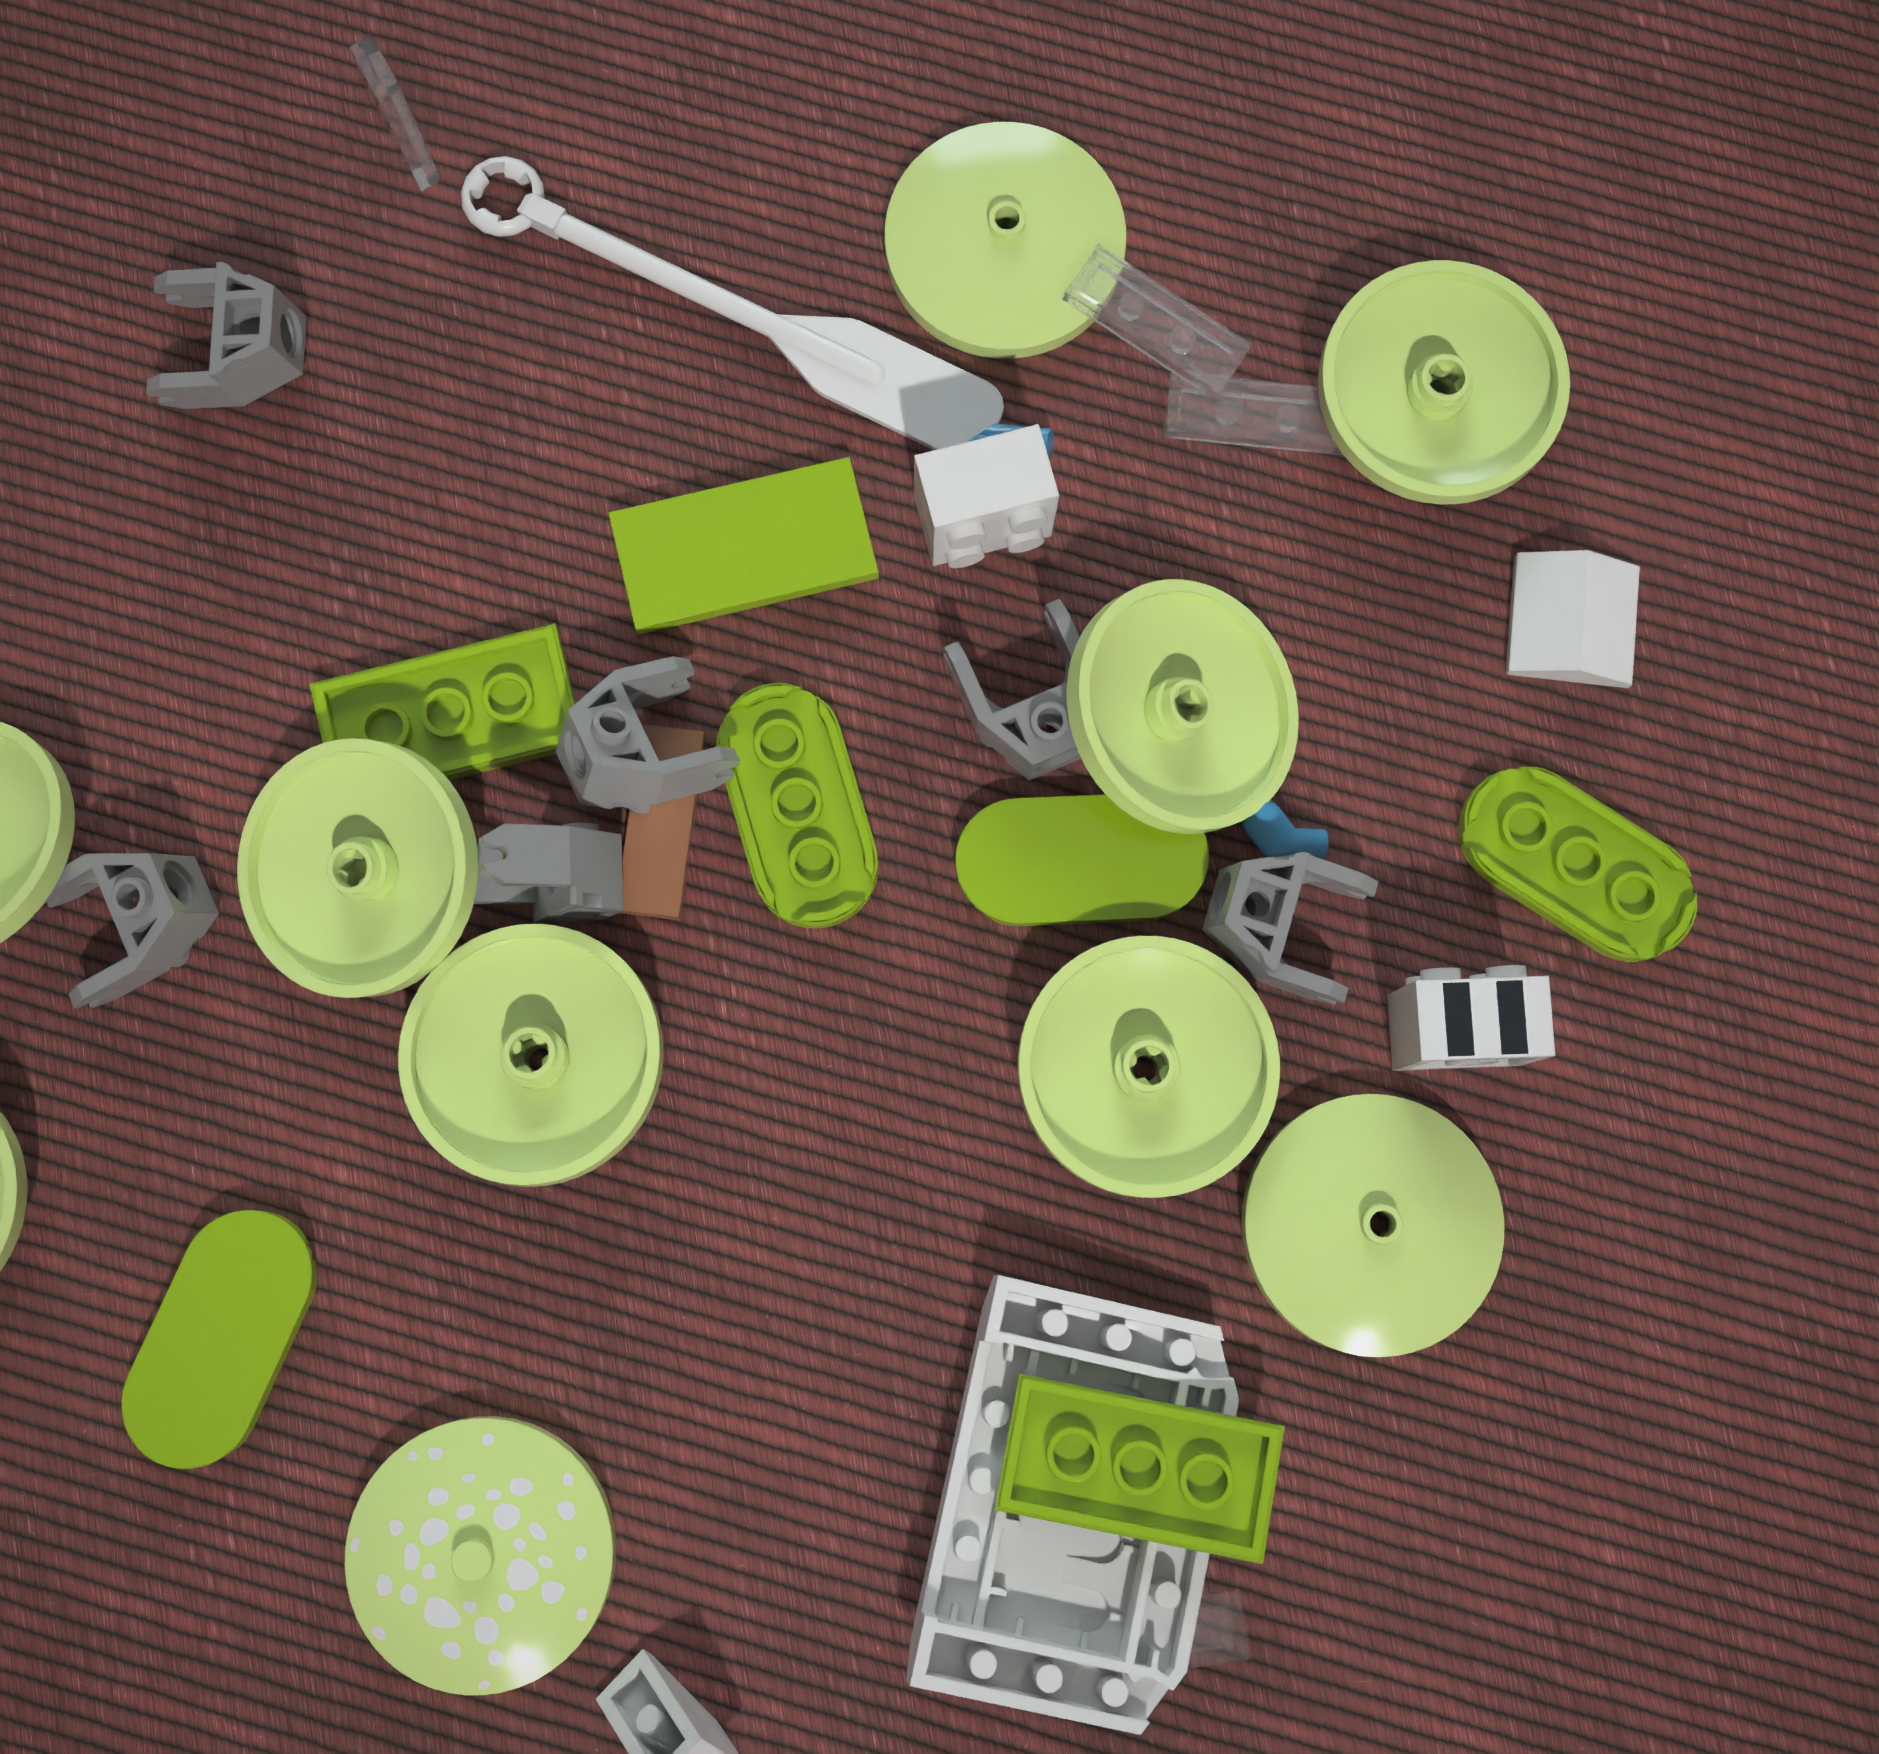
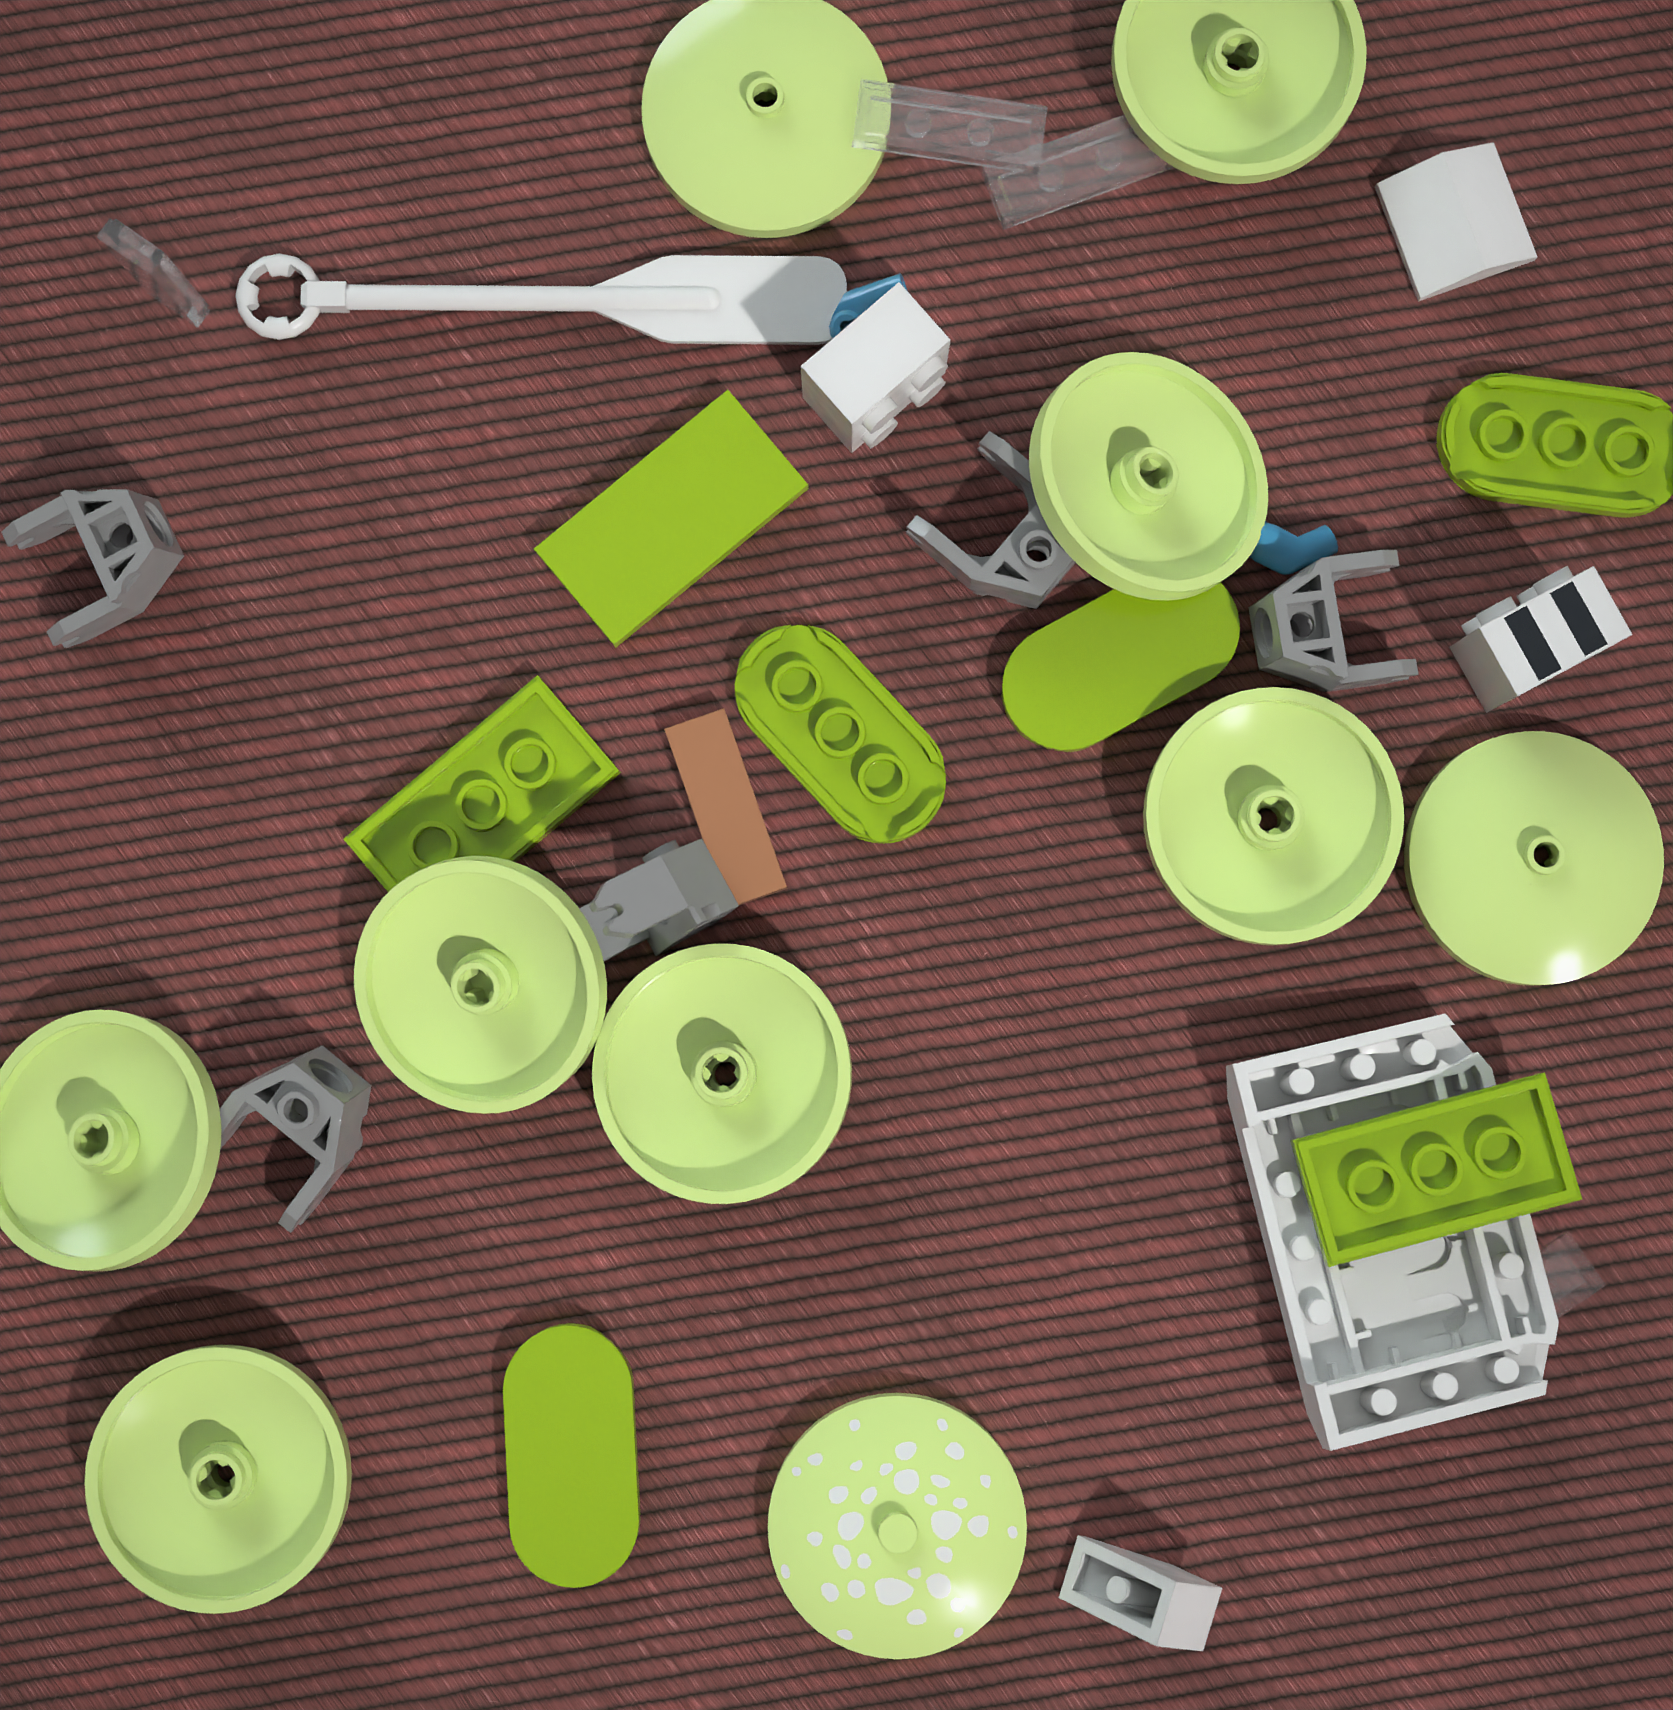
camera: 20 degrees left, 5 degrees up
(611, 755) = (679, 775): light grey piece -> none

